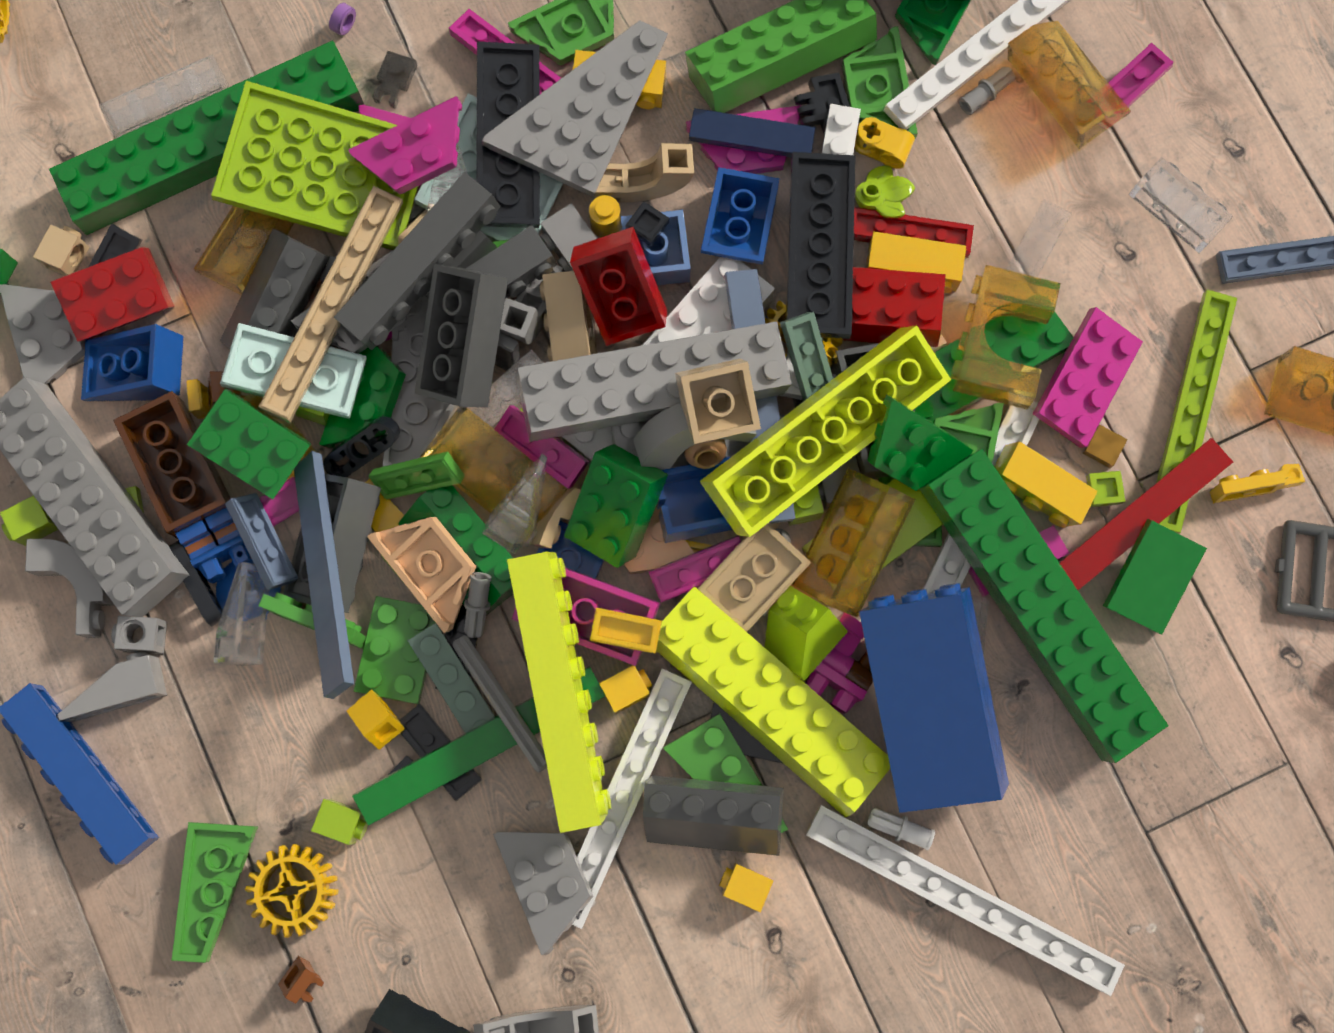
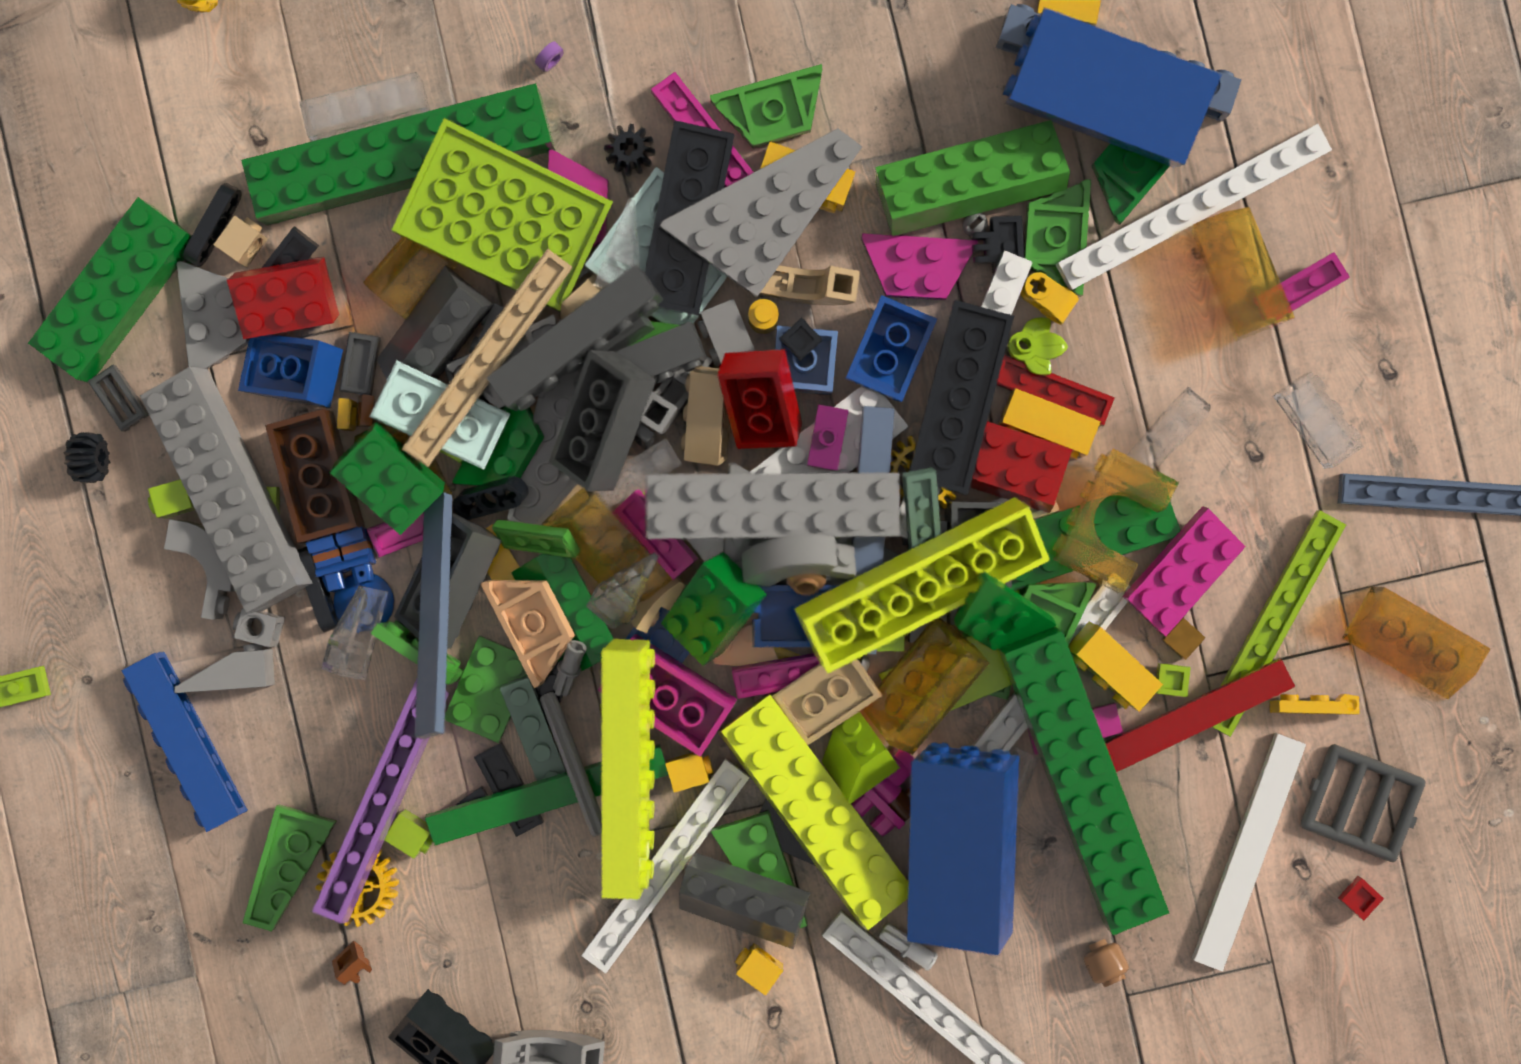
camera: 15 degrees right, 10 degrees up
(36, 222) = (212, 224): none -> black beam
(203, 347) = (360, 364): none -> dark grey tile
(261, 541) = (383, 567): sand blue tile -> none
(296, 803) = (373, 817): none -> medium lavender brick
(375, 719) = (457, 751): yellow brick -> none
(394, 74) = (590, 124): clear smoke plate -> none
(414, 148) = (592, 222): dark pink wing -> none
(434, 78) = (621, 143): none -> black gear
(546, 882) = (582, 926): light grey wing -> none
(626, 630) = (698, 725): yellow tile -> none
(695, 308) = (827, 437): none -> magenta plate
(718, 400) = (825, 546): tan slope -> none
(750, 133) = (922, 263): dark blue tile -> none
(802, 88) = (981, 227): none -> light grey hinge
(987, 90) = (1162, 262): light grey axle -> none
(1115, 798) = (1106, 963): none -> medium nougat head
(1154, 576) = (1194, 773): green tile -> none
(1231, 651) = (1248, 852): none -> white tile

